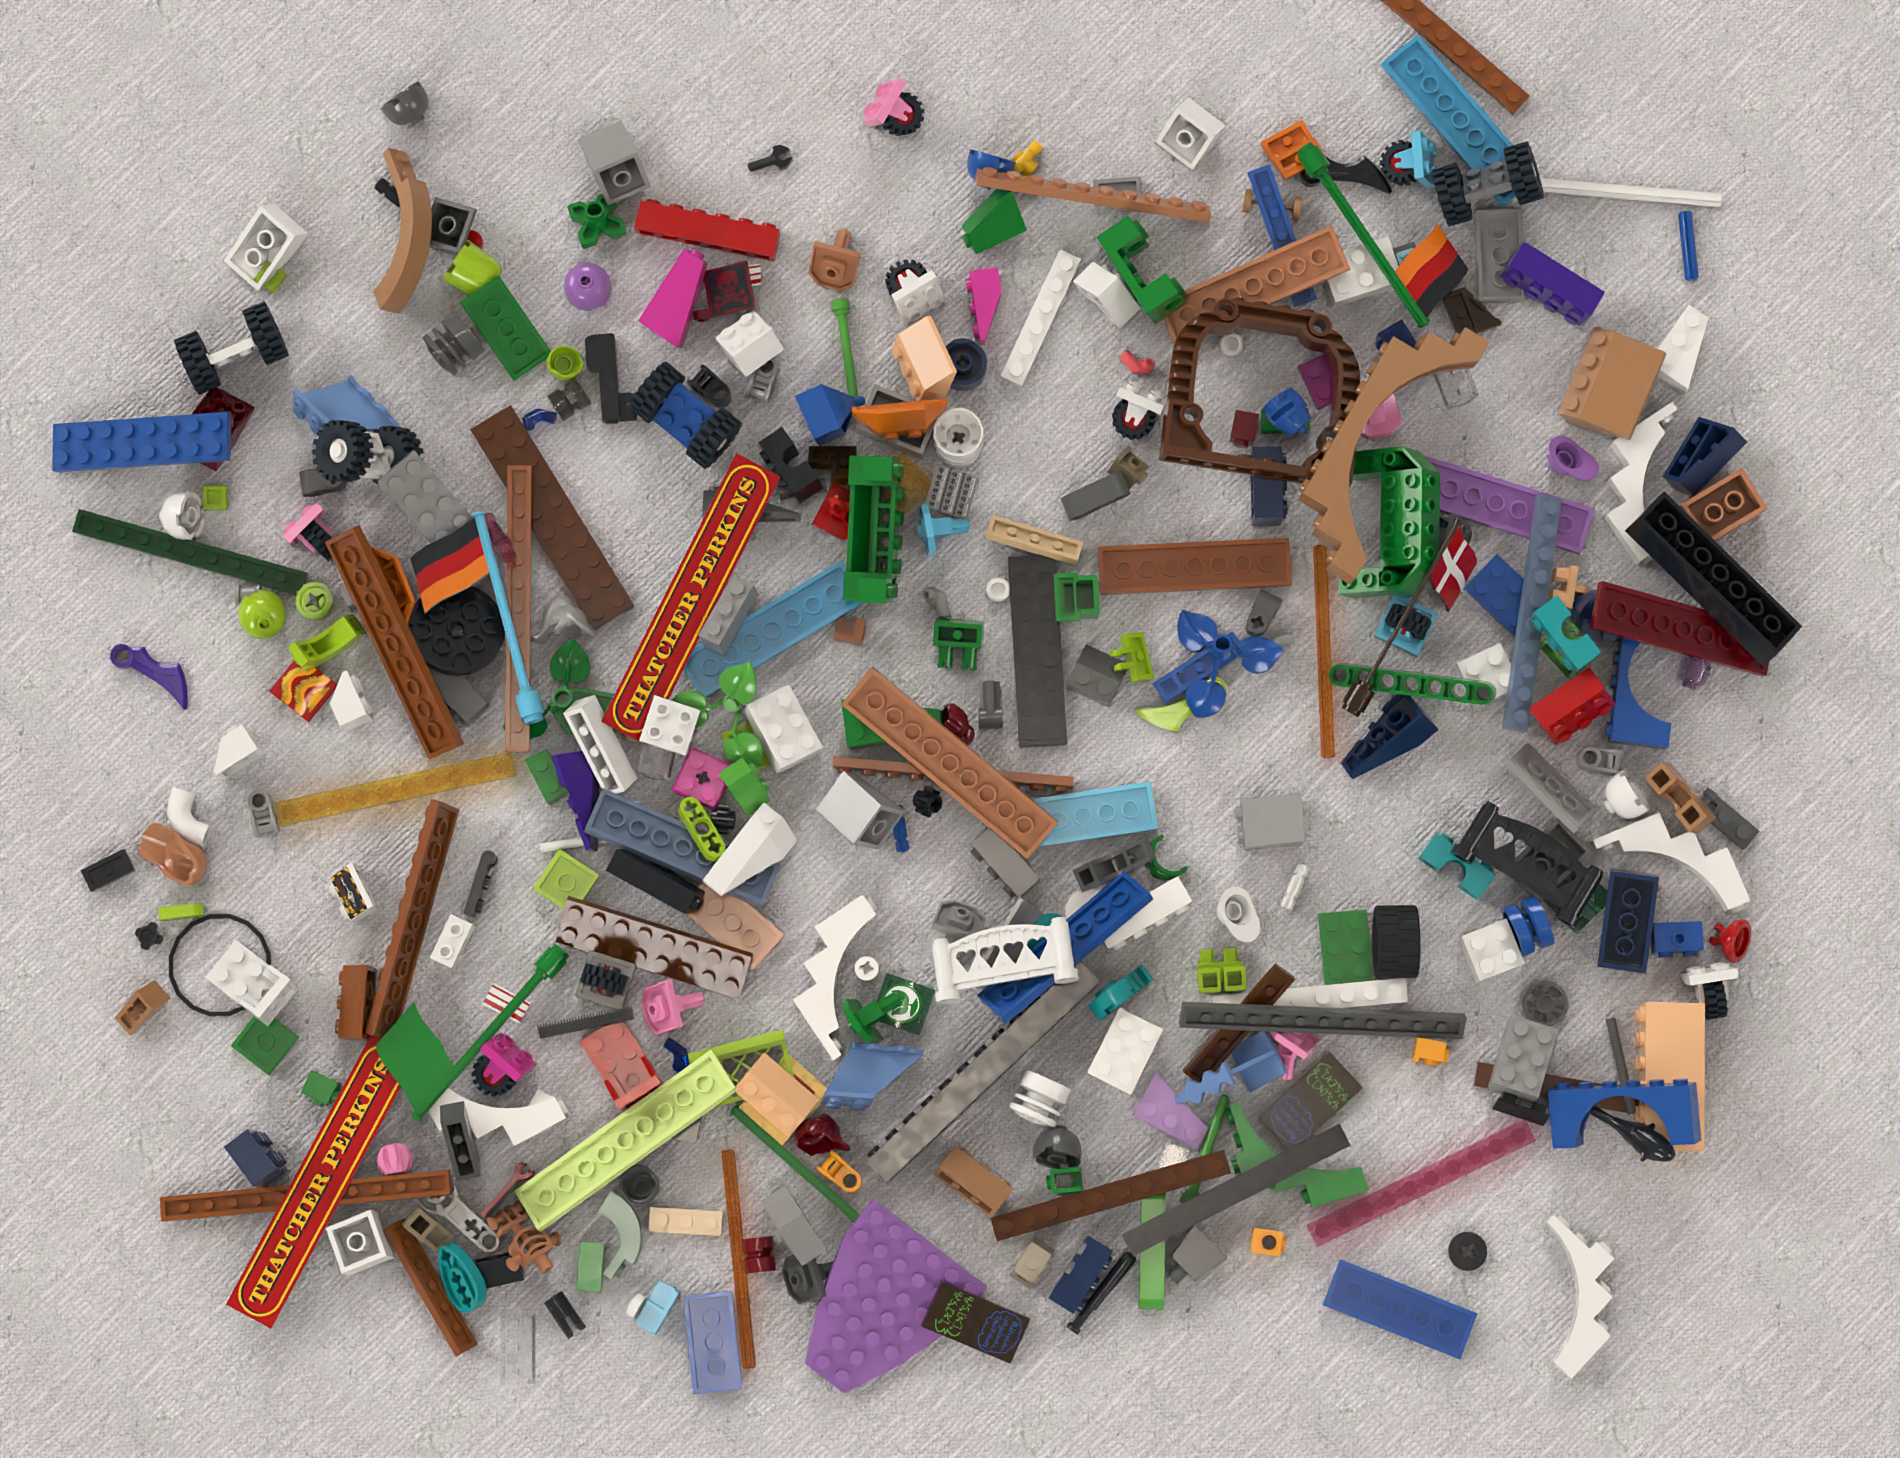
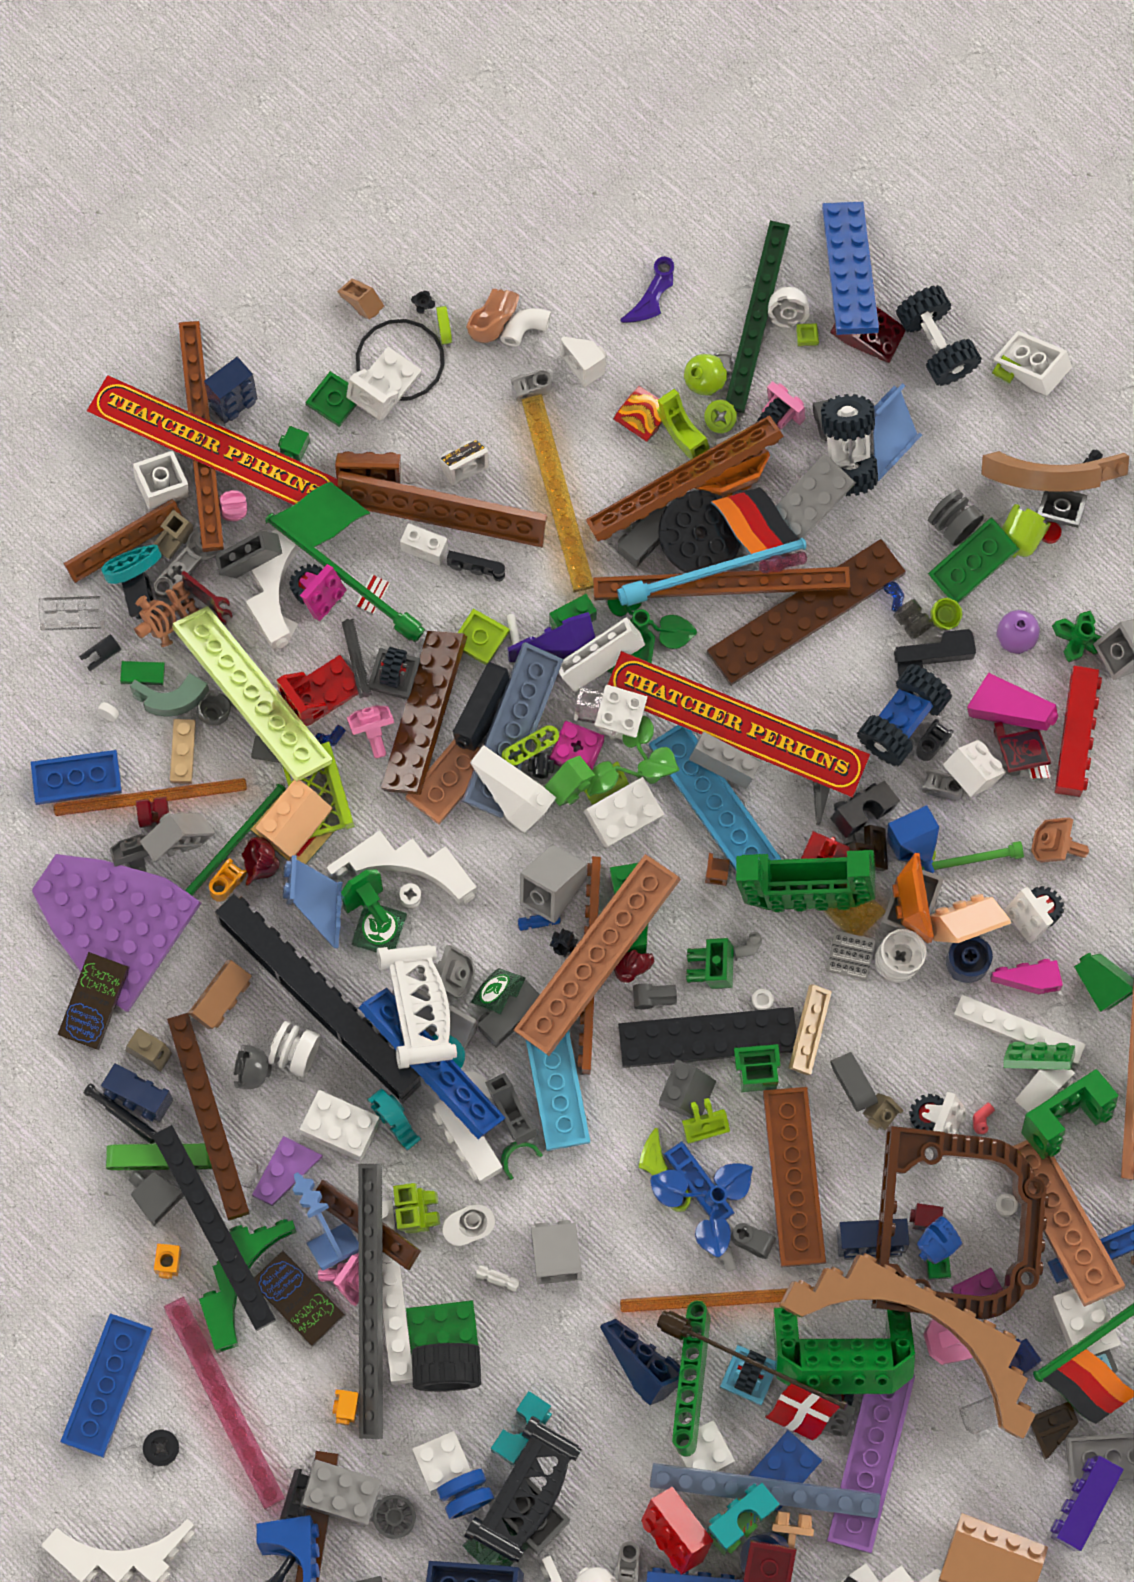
camera: 85 degrees right, 10 degrees down
(108, 870) = (478, 265): black plate -> none
(348, 704) = (630, 447): white slope -> none
(562, 619) = (715, 622): light grey piece -> none
(657, 1307) = (107, 730): medium azure panel -> none
(937, 528) = (813, 935): medium azure piece -> none
(980, 874) = (496, 990): none -> clear green slope
(1065, 1180) = (222, 1077): green window -> none
(1077, 297) = (1039, 1056): none -> green plate
(1209, 1143) = (254, 1205): bright green piece -> none
(1550, 788) = (598, 1514): light grey tile -> none
(1570, 459) = (917, 1528): medium lavender piece -> none

